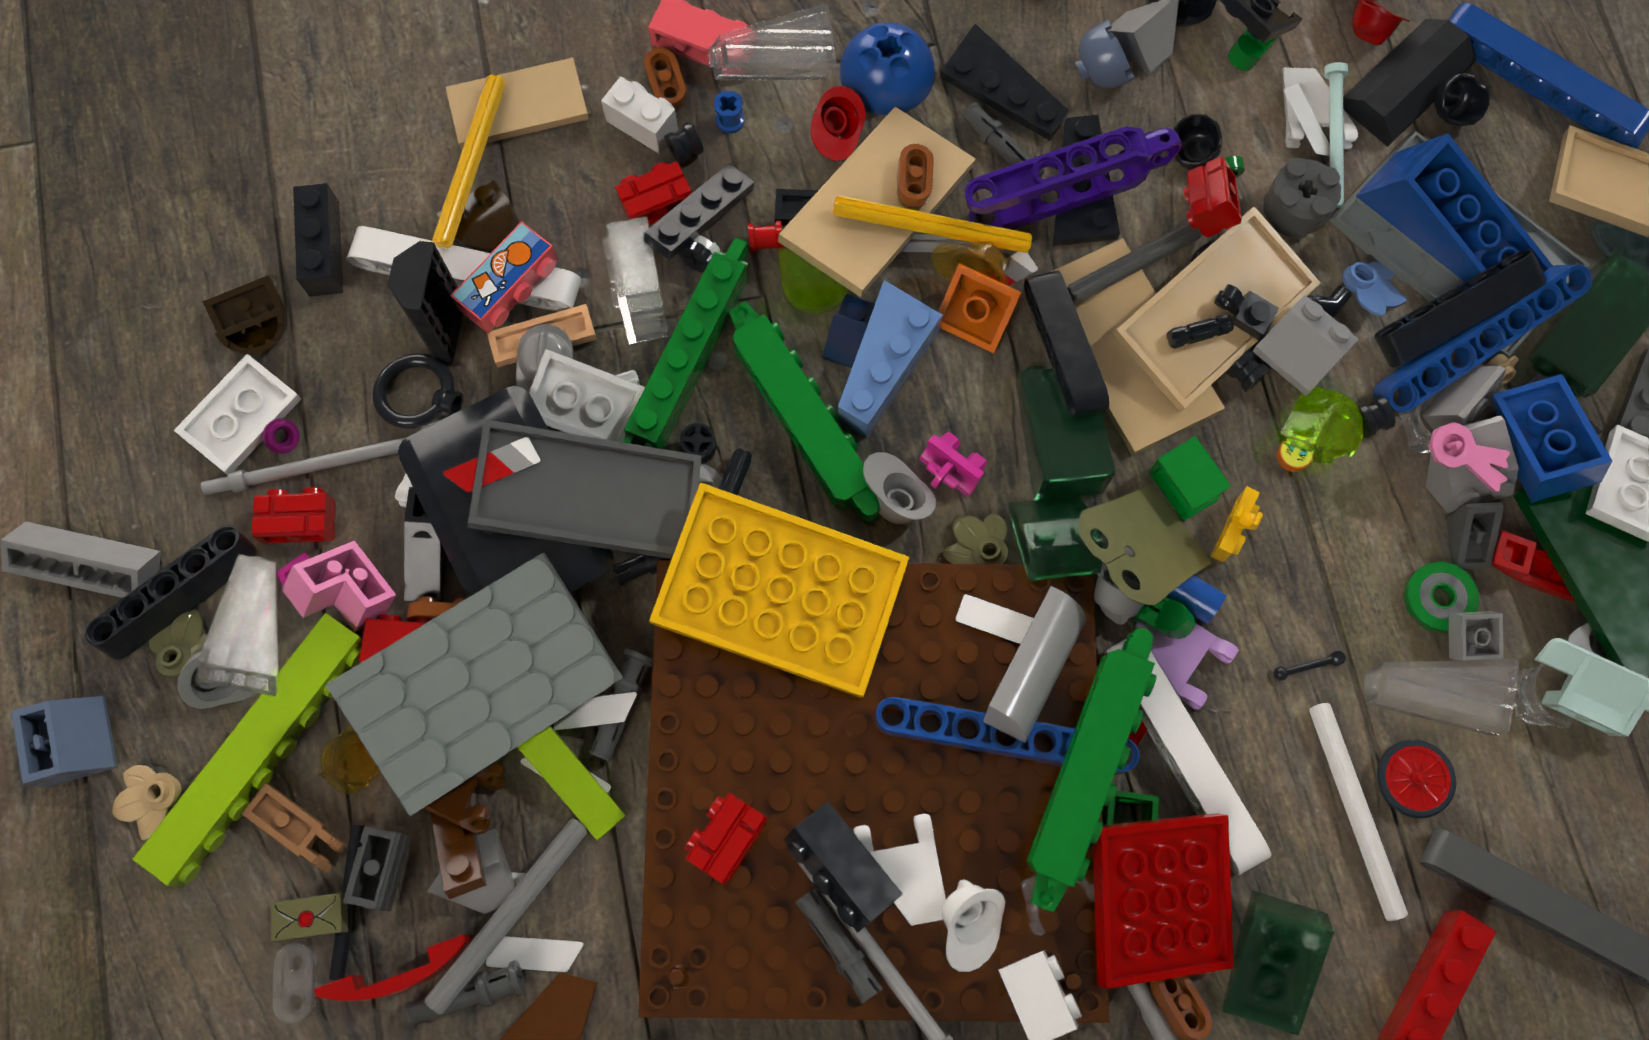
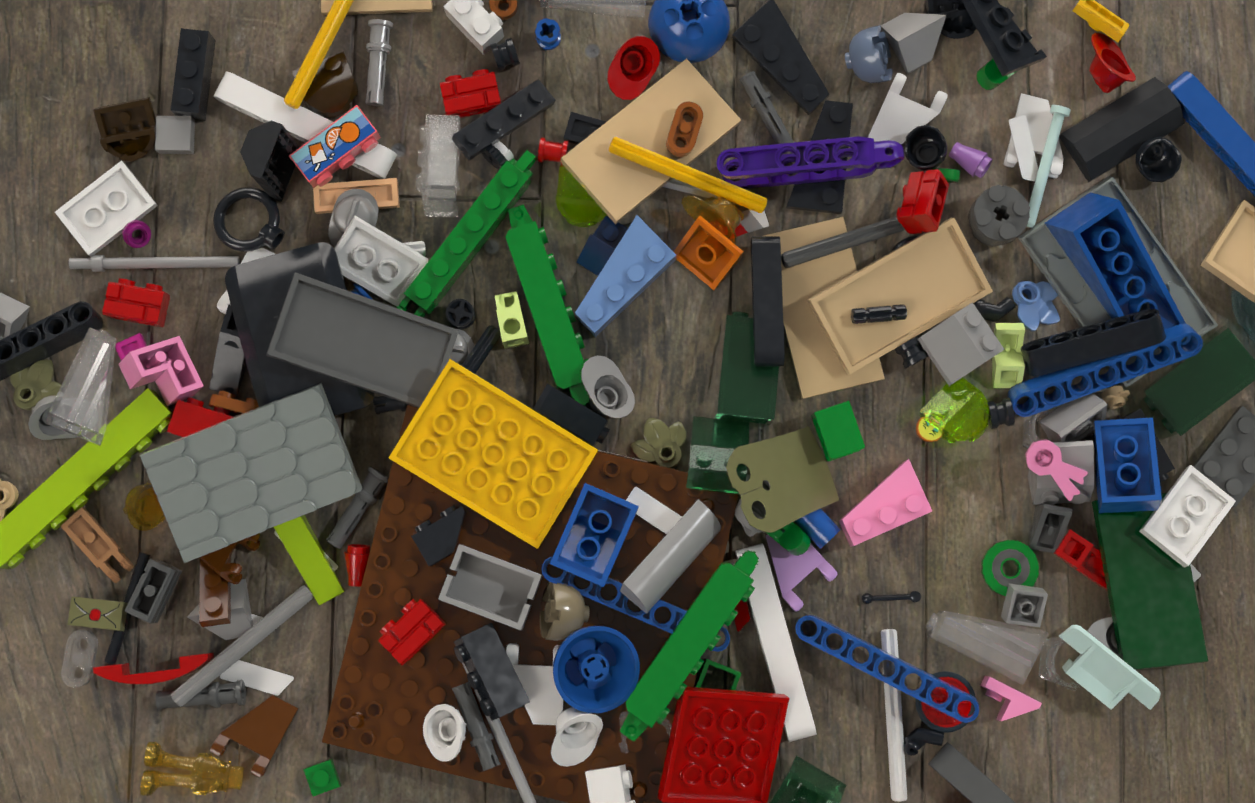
camera: 15 degrees right, 10 degrees up
(308, 313) = (175, 134): none -> light grey piece
(498, 464) = (299, 310): sticker -> none
(535, 169) = (378, 49): none -> light grey pin
(598, 711) = (342, 510): white sticker -> none
(633, 770) = (356, 562): none -> red cone
(737, 710) = (442, 537): none -> black slope
(762, 438) = (511, 320): none -> yellowish green leg
(799, 962) = (444, 732): none -> white piece
(816, 756) = (490, 587): none -> light grey piece
(864, 523) = (572, 416): none -> black slope
(917, 767) = (563, 611): none -> dark tan cylinder
(933, 658) = (594, 535): none -> blue slope
(950, 466) = (652, 379): dark pink hips -> none
(998, 829) = (609, 675): none -> blue piece
(1156, 113) = (901, 115): none -> white flag
(1242, 516) = (869, 474): yellow plate -> none
(1250, 146) = (971, 159): none -> medium lavender cone
(1250, 312) = (925, 307): black plate -> none
(1275, 553) = (887, 506): none -> bright pink wedge
(1355, 746) = (902, 668): none -> blue beam
(1365, 362) = (1009, 364): none -> yellowish green slope
(1399, 830) = (919, 738): none -> black arm
(1500, 756) = (1015, 701): none -> bright pink slope

